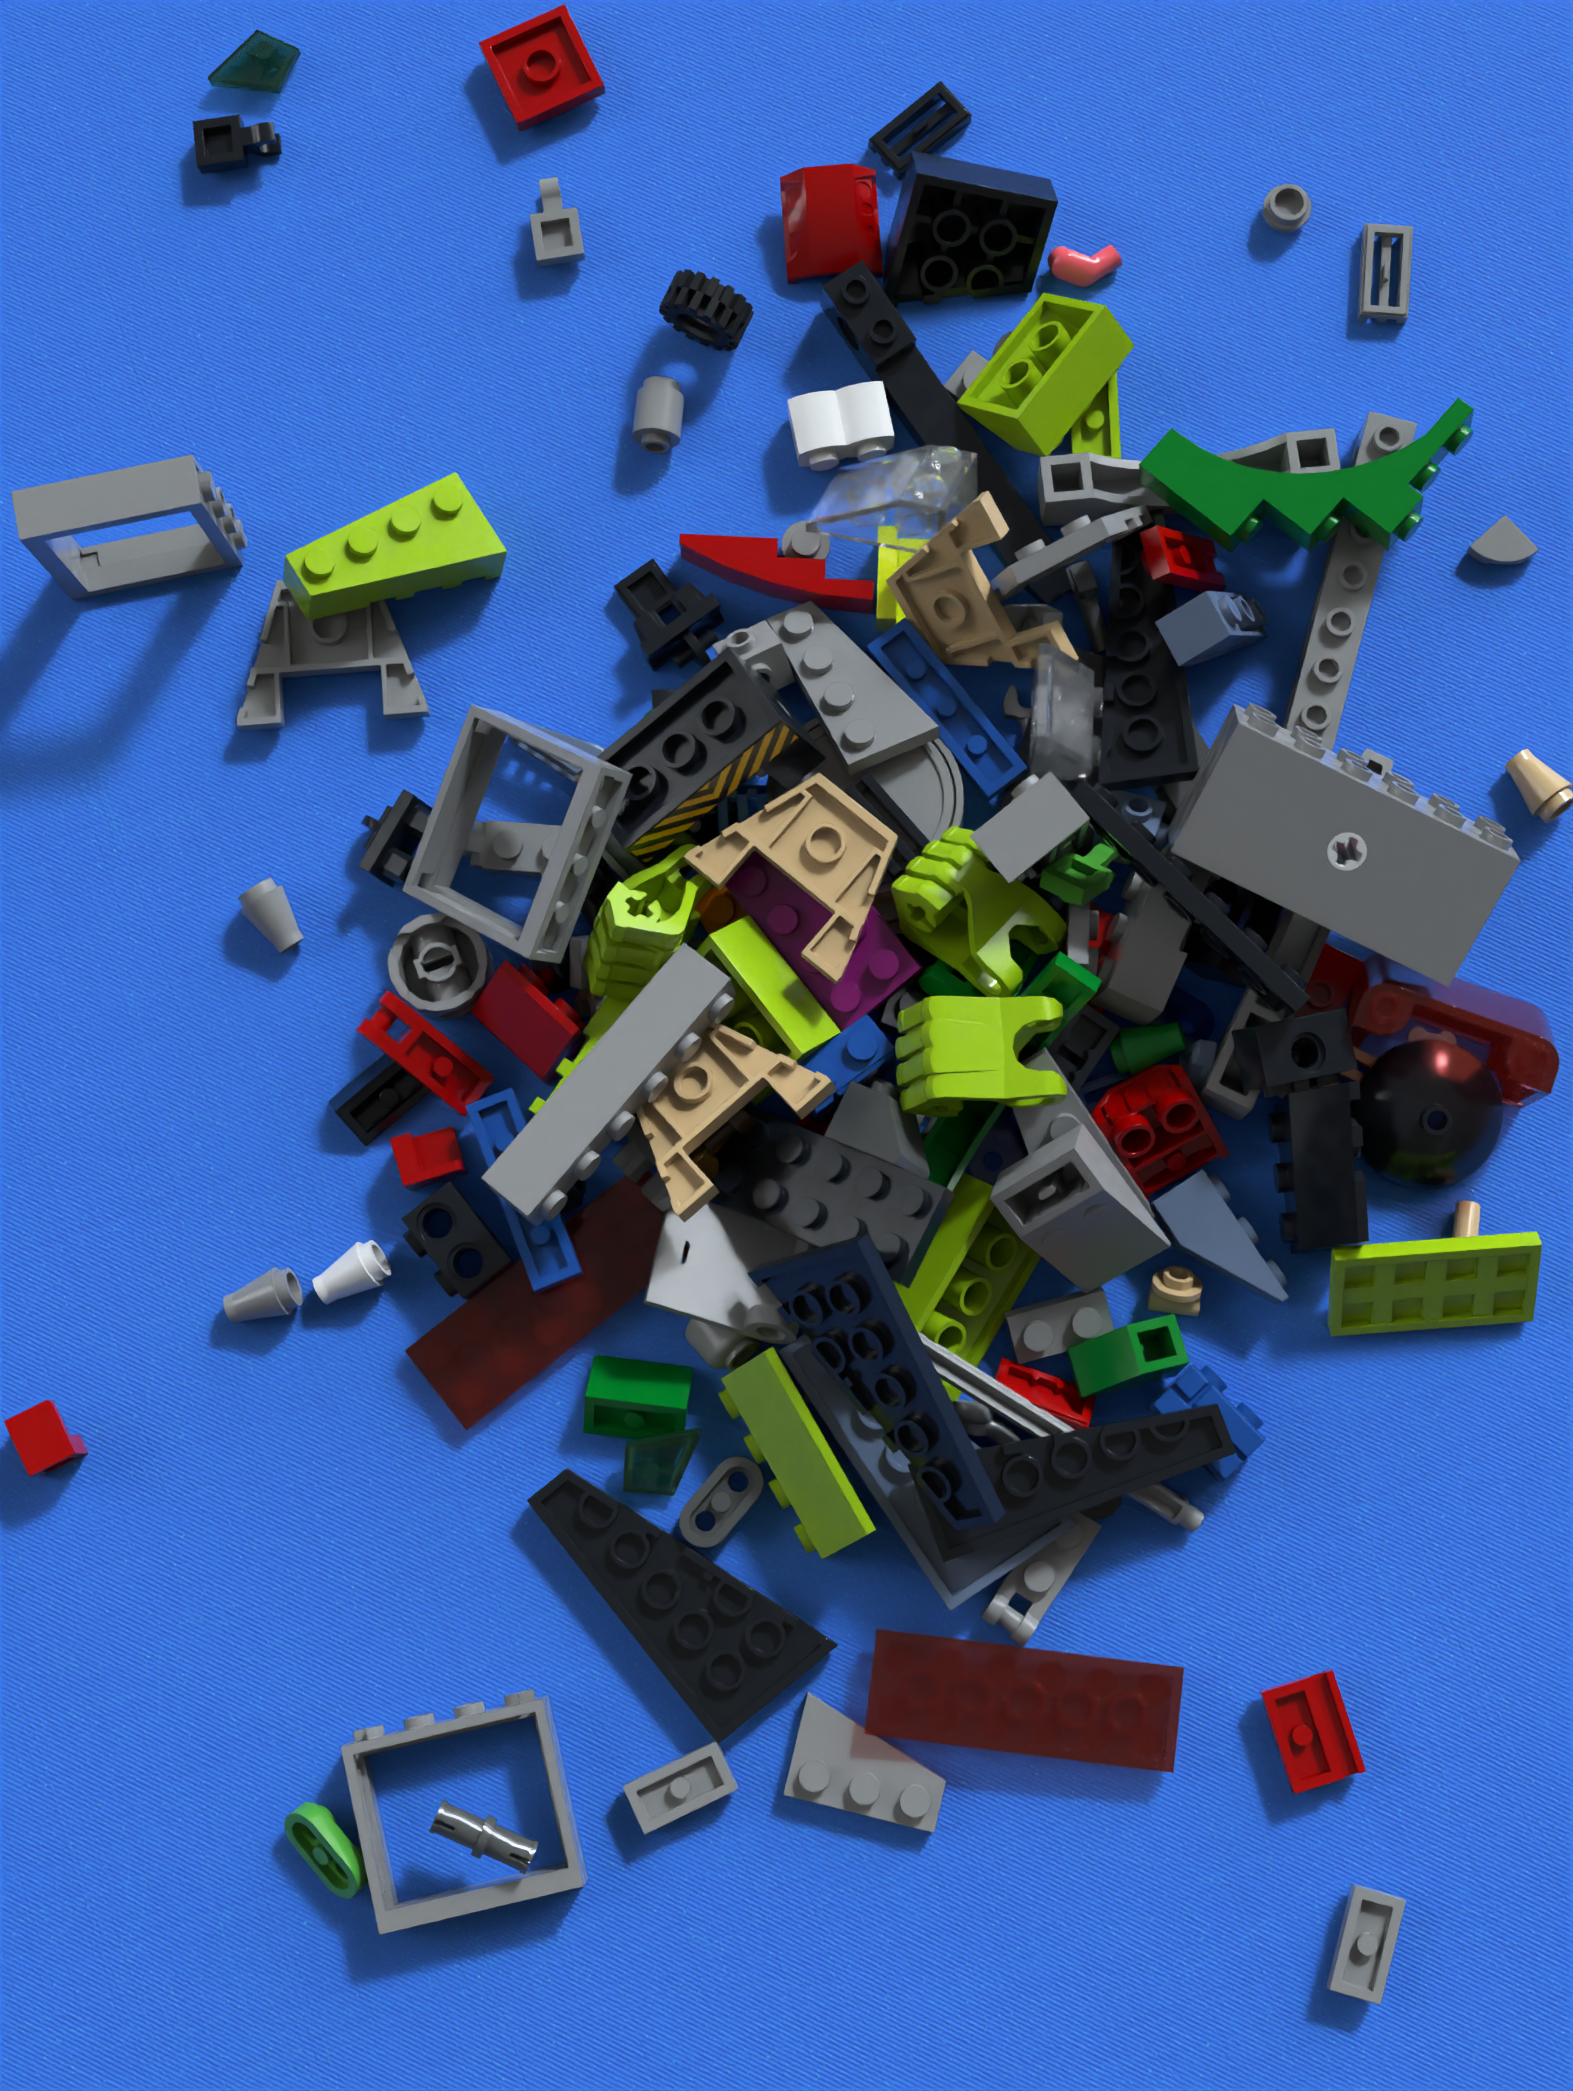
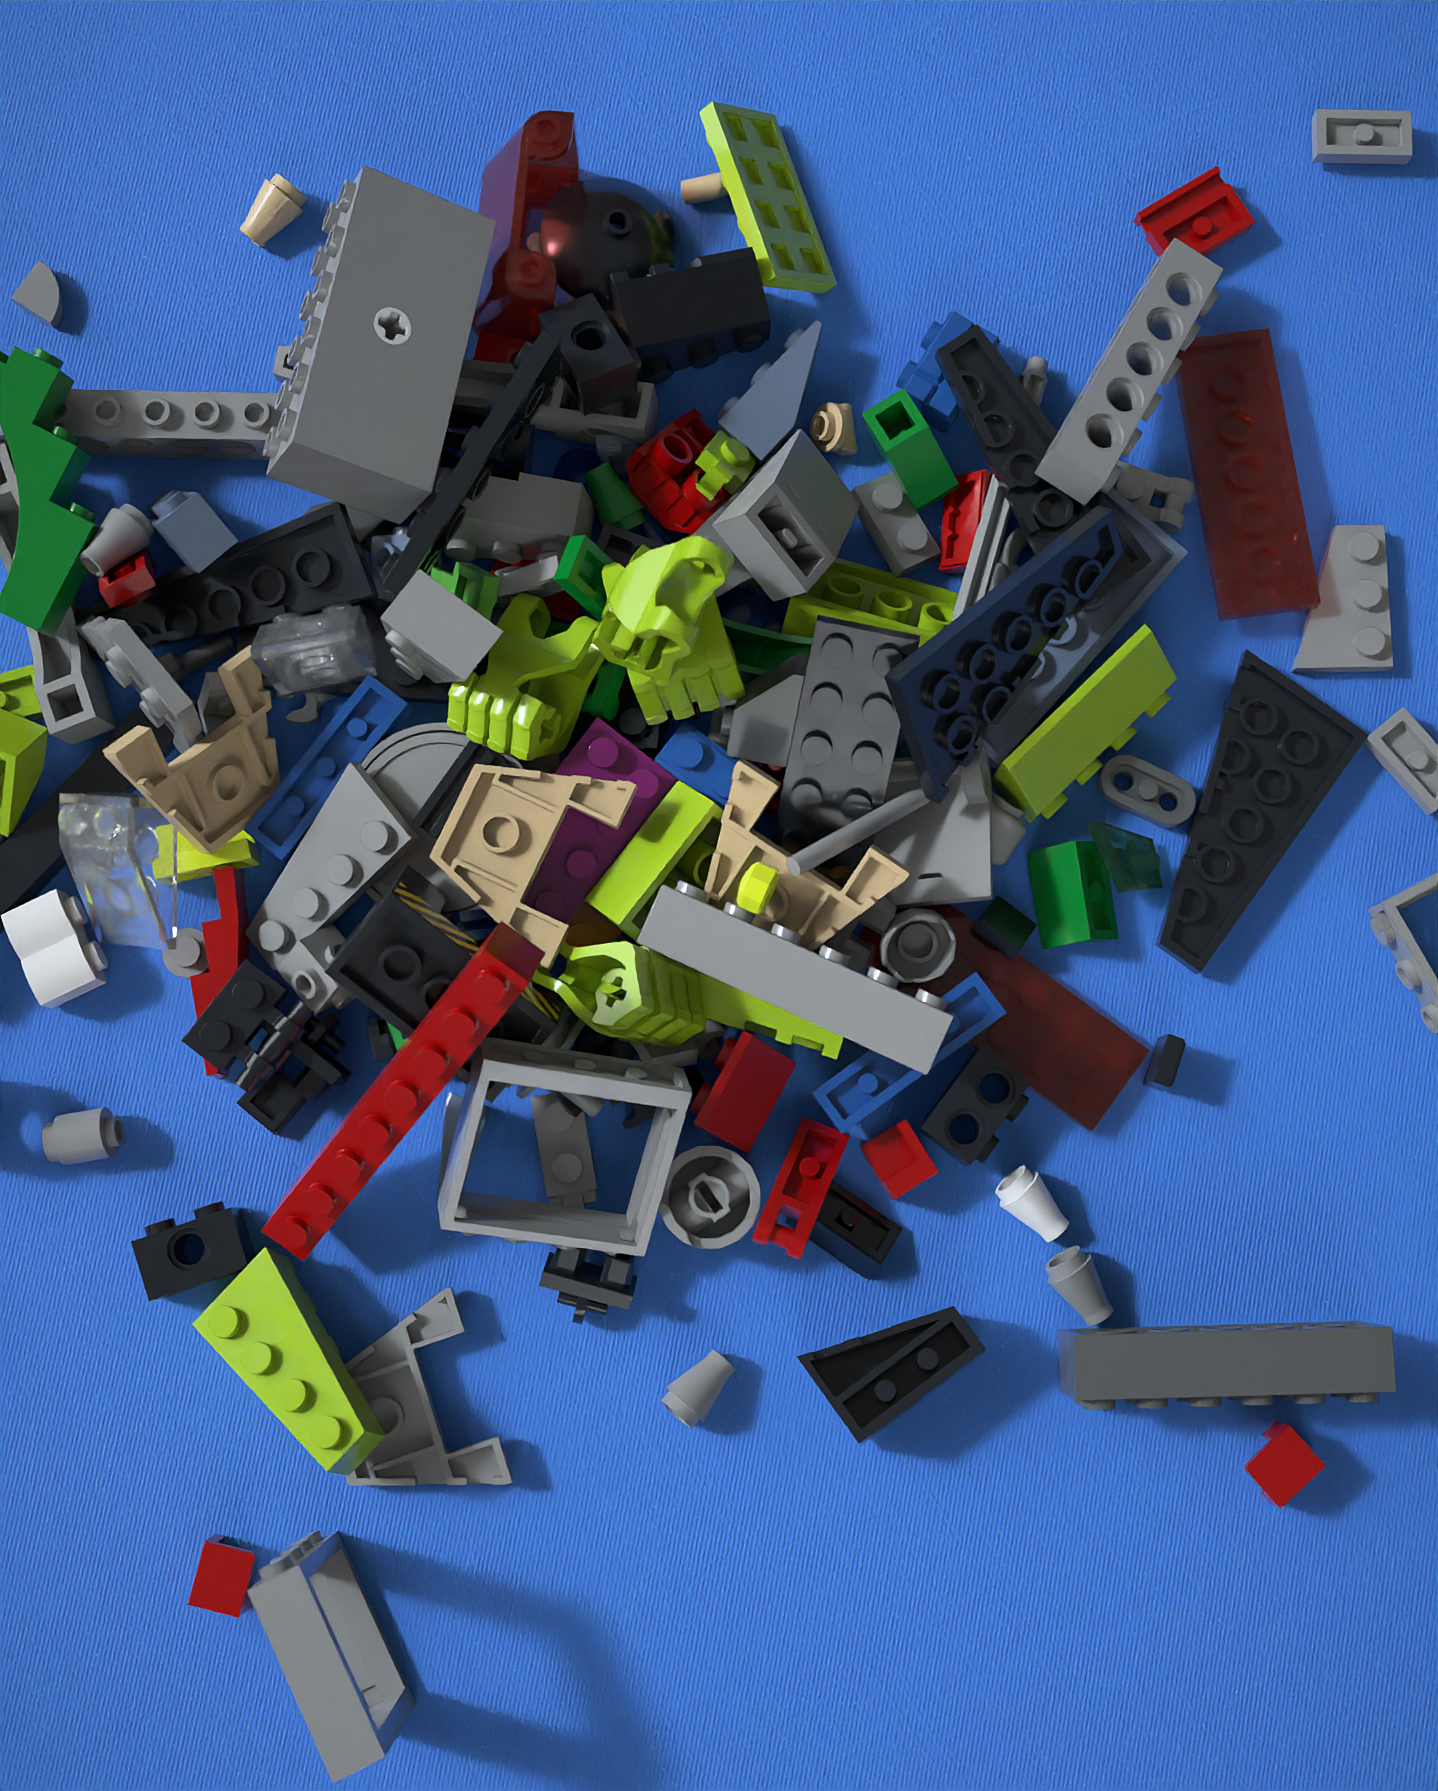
camera: 115 degrees left, 0 degrees up
(150, 1408) = (1226, 1360): none -> dark grey brick
(229, 453) = (223, 1578): none -> red panel
(234, 1090) = (892, 1370): none -> black wedge
(449, 1439) = (1164, 1062): none -> black tile
(513, 465) = (162, 1255): none -> black brick
(604, 698) = (405, 1089): none -> red brick
(622, 1223) = (917, 945): none -> light grey hair
(623, 1321) = (1004, 927): none -> black tile
(705, 1069) = (758, 887): none -> neon yellow tile
(724, 569) = (236, 1018): none -> black plate
(740, 1185) = (856, 831): none -> light grey bar
(988, 1030) = (659, 604): none -> lime piece
(1154, 1163) = (725, 464): none -> lime plate
(1215, 557) = (117, 539): none -> light grey cone
(1249, 1684) = (1130, 372): none -> light grey brick

